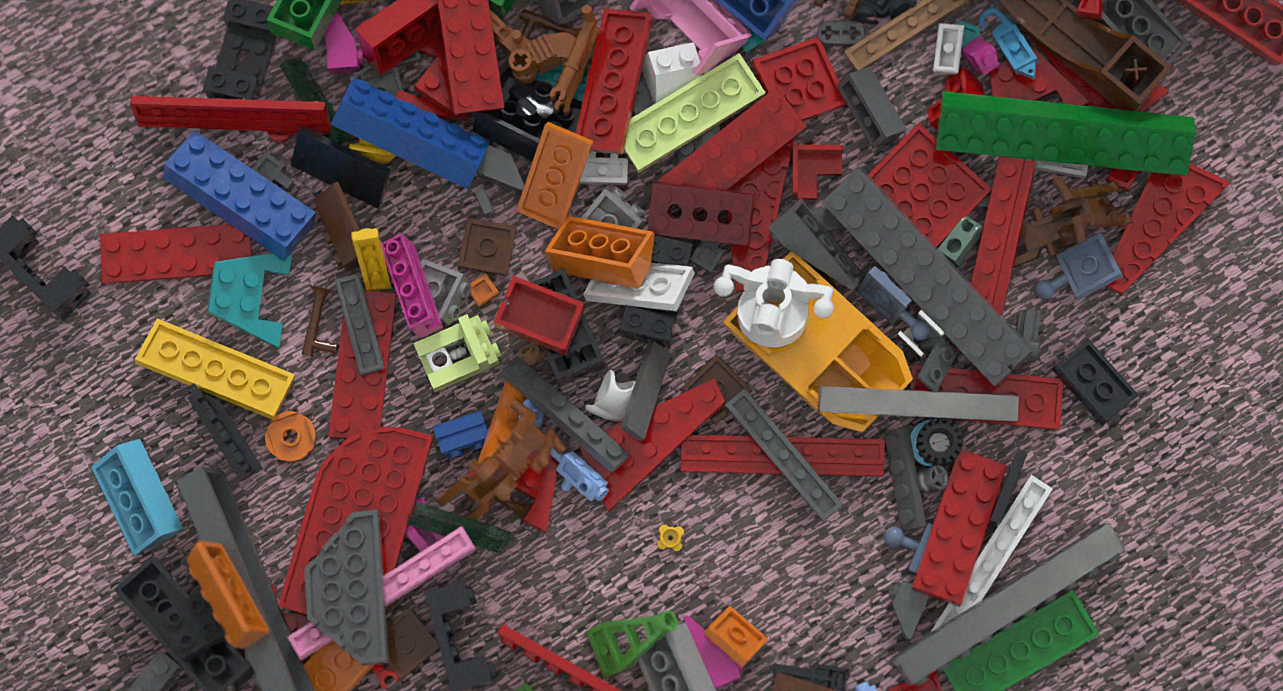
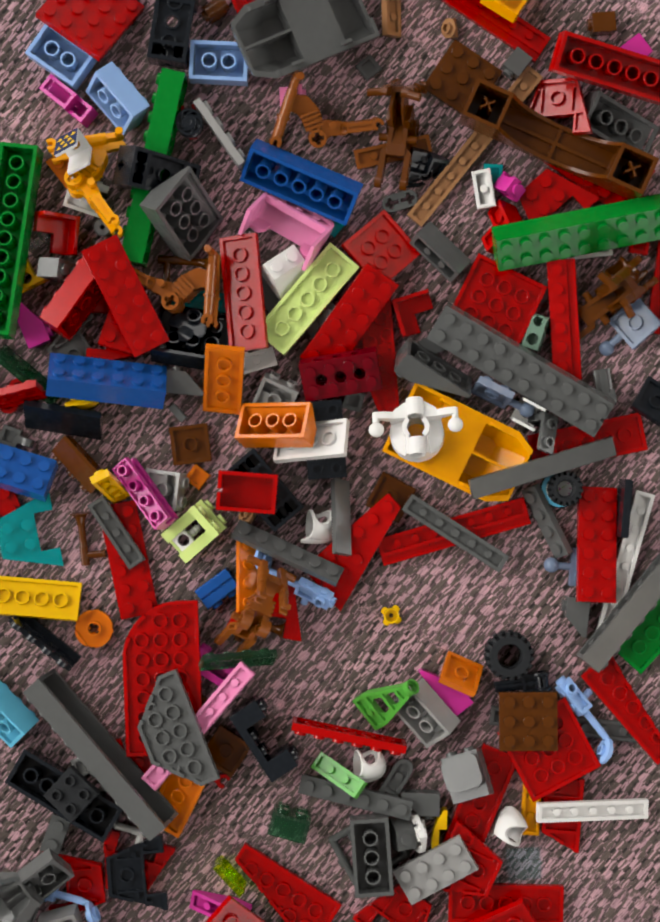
camera: 25 degrees left, 10 degrees up
(226, 594) = (88, 768): orange slope -> none
(811, 610) = (515, 670): none -> black tyre
(932, 479) = (567, 516): flat silver wheel -> none
(1012, 44) = (530, 171): dark azure plate -> none

